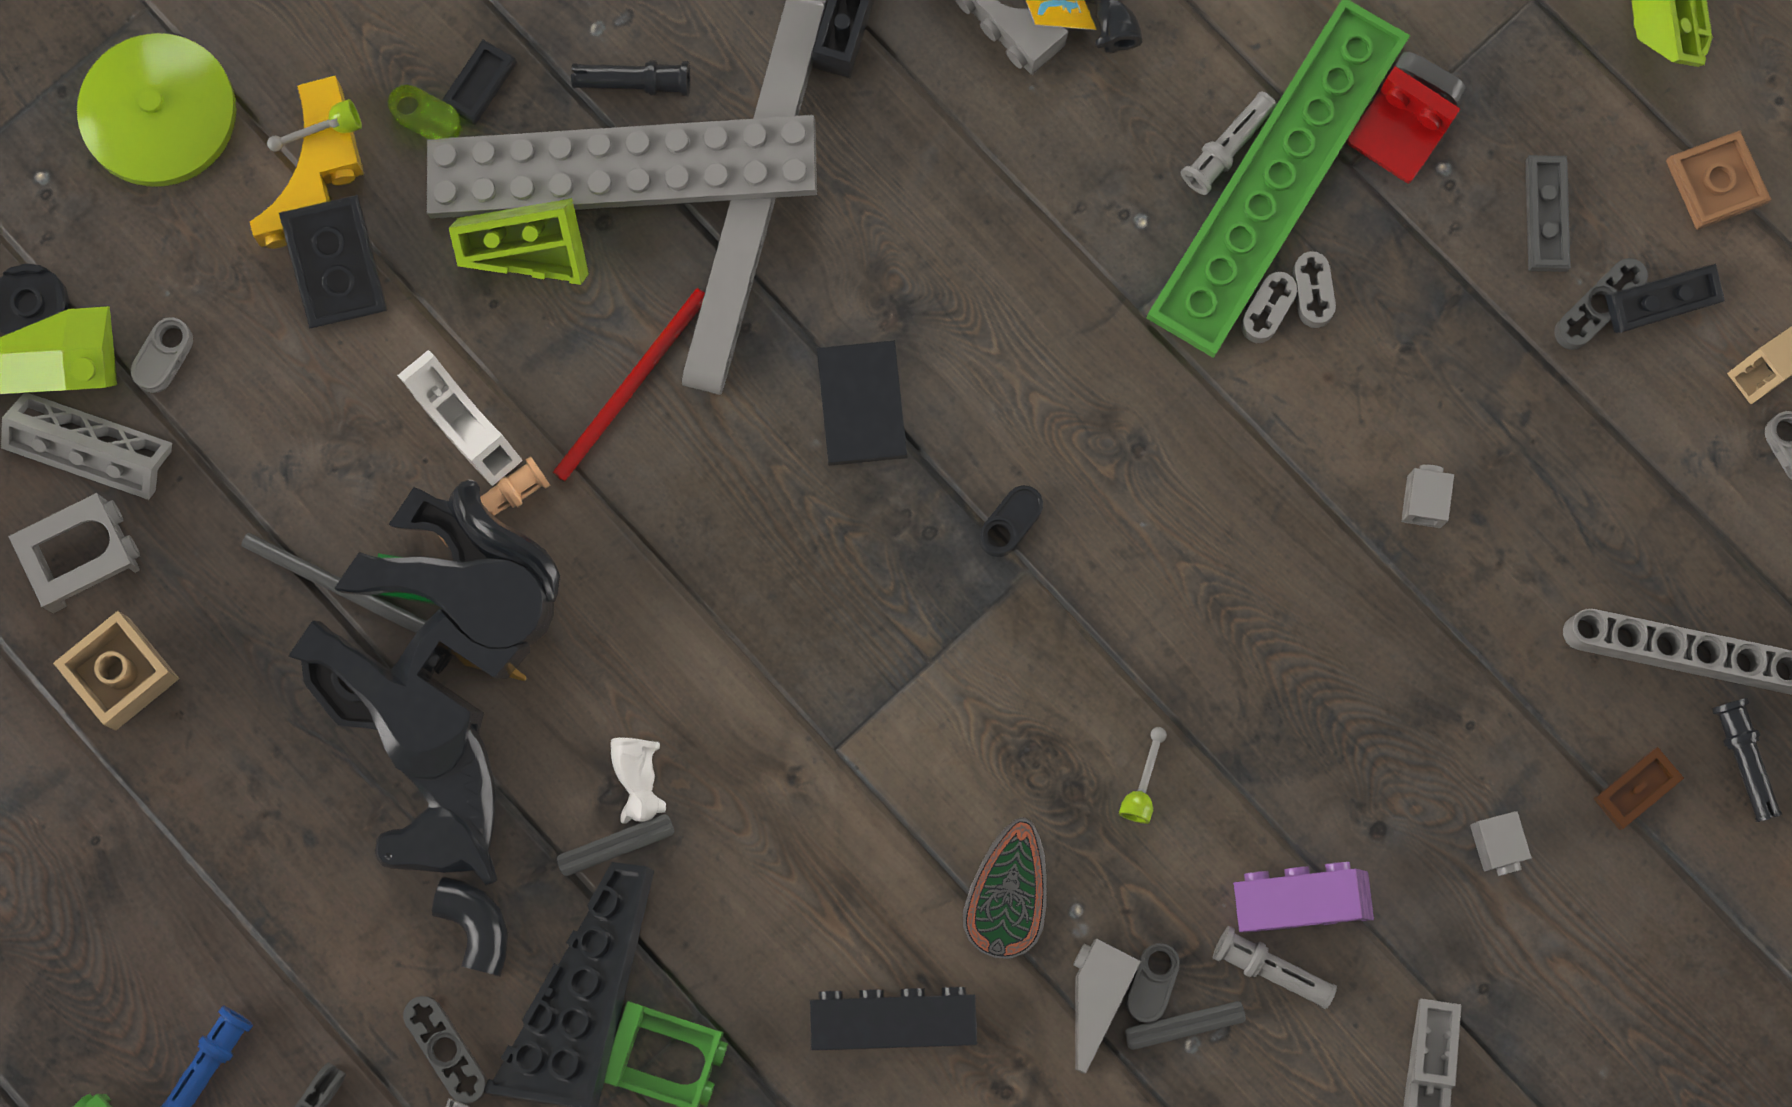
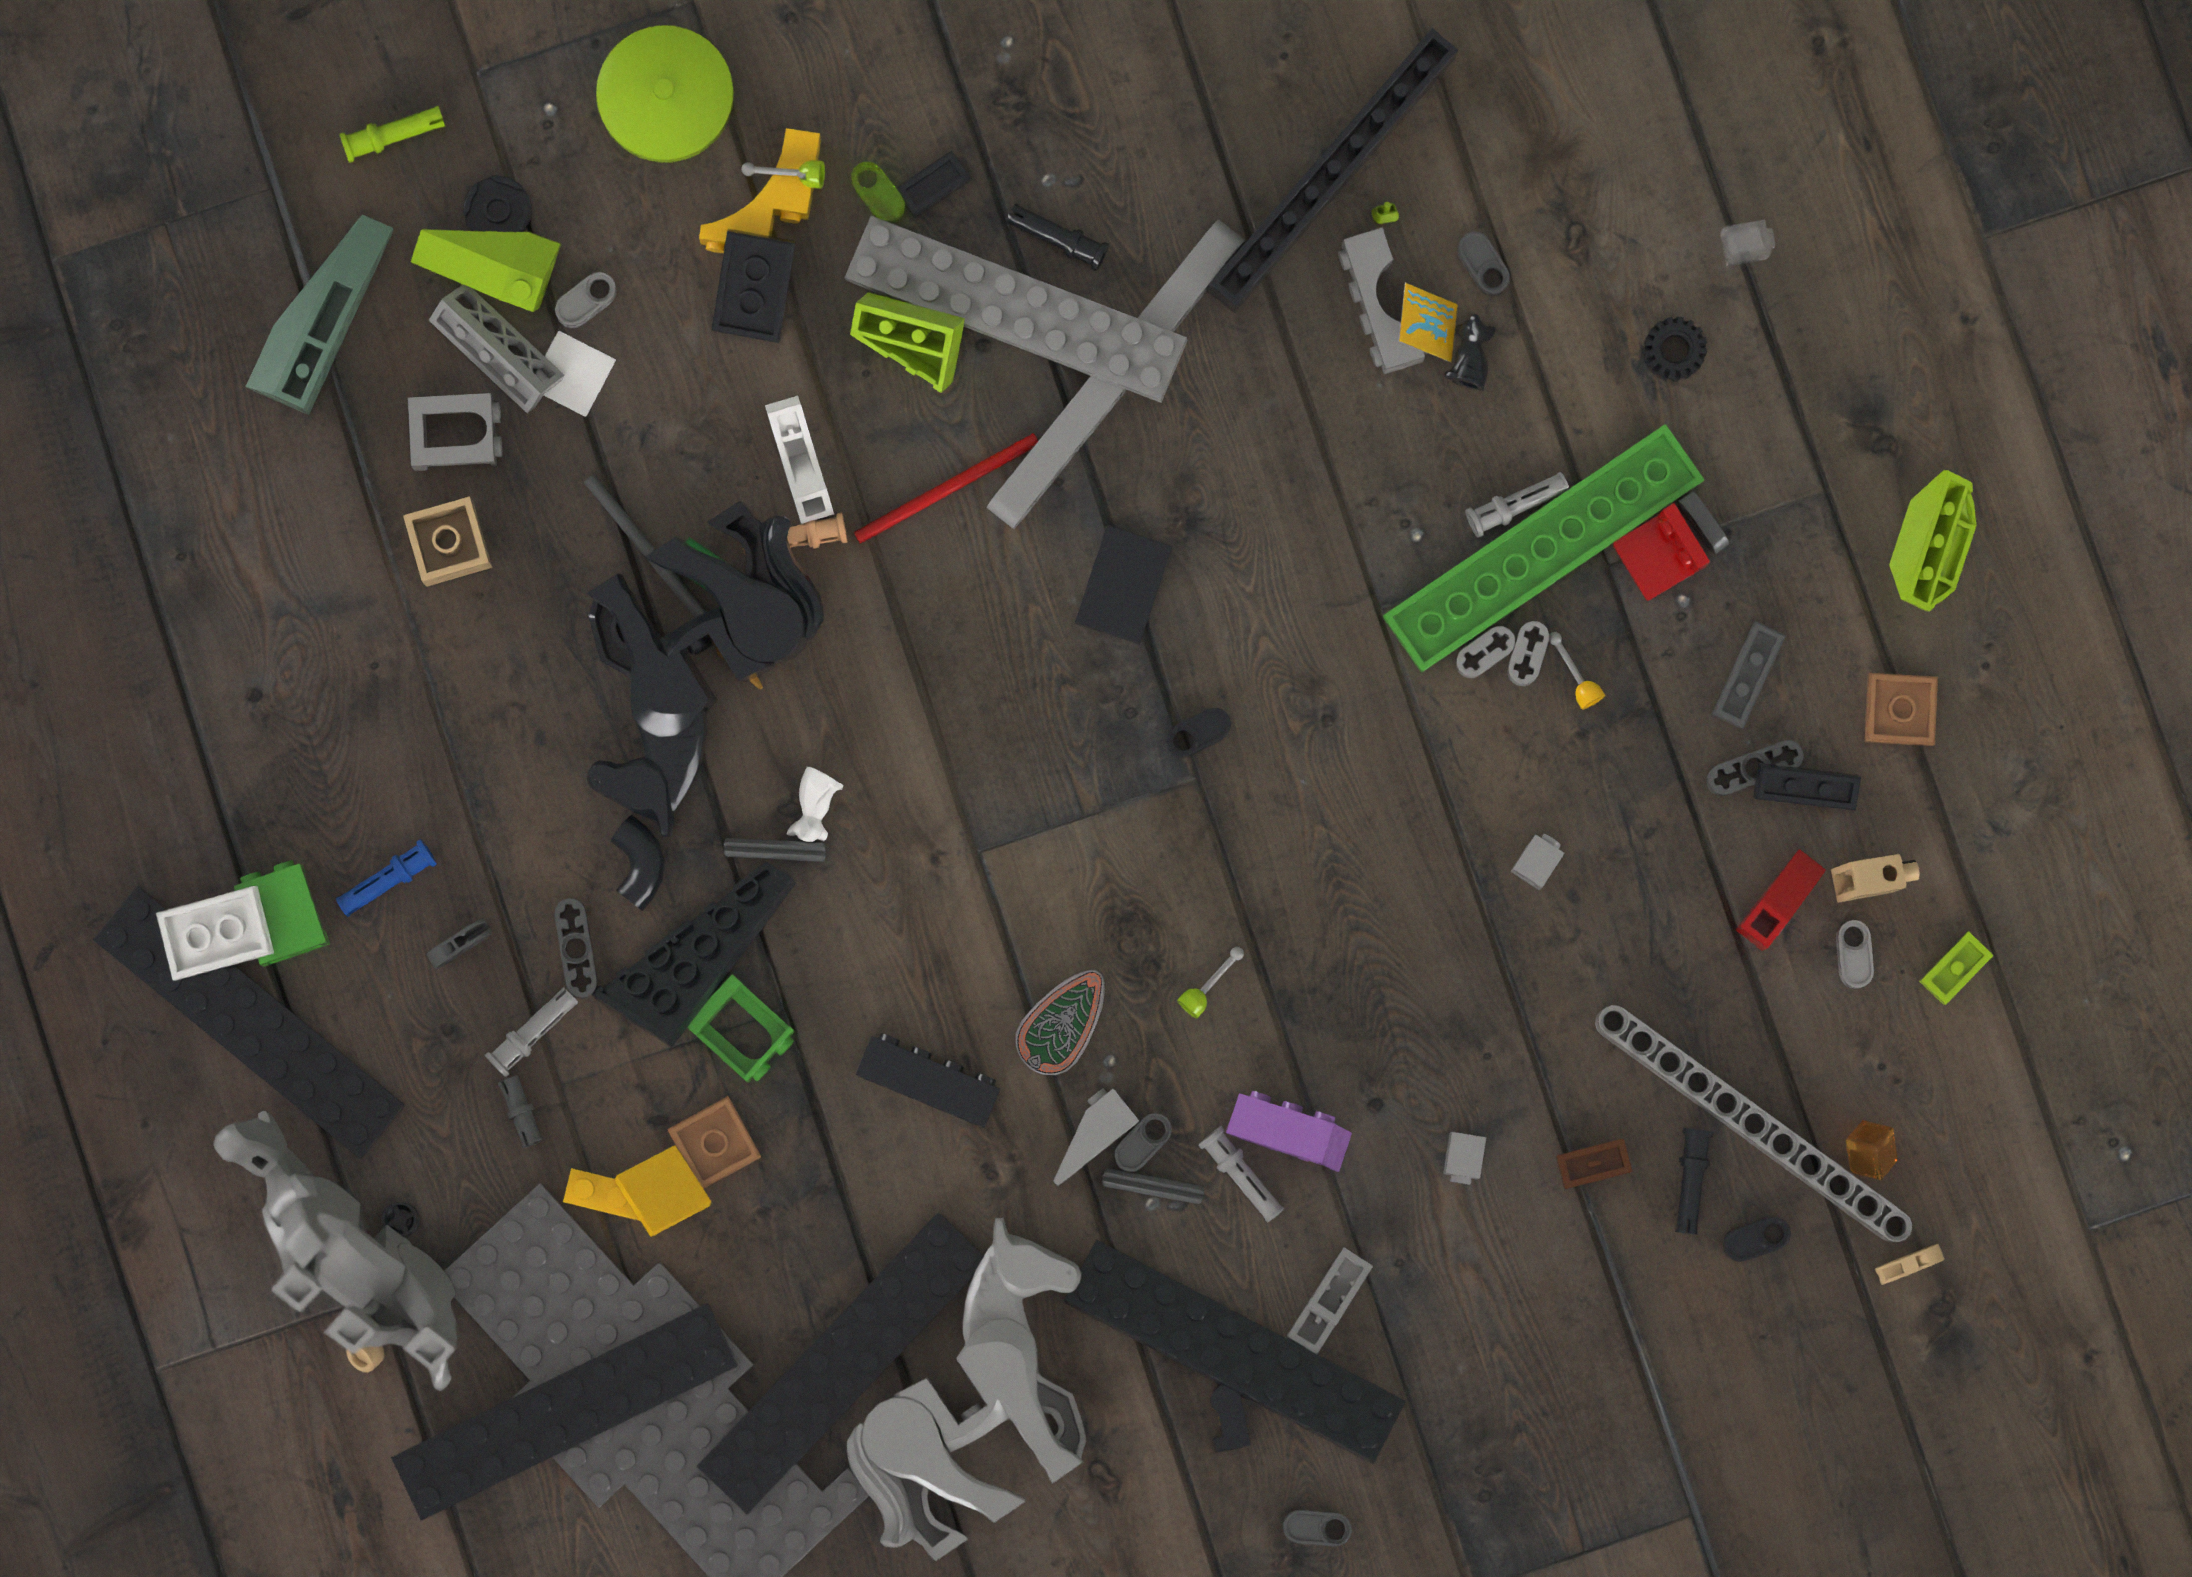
camera: 20 degrees right, 5 degrees up
(191, 430) = (583, 370): none -> white sticker
(1393, 301) = (1587, 692): none -> hinge
(1697, 428) = (1781, 900): none -> red slope

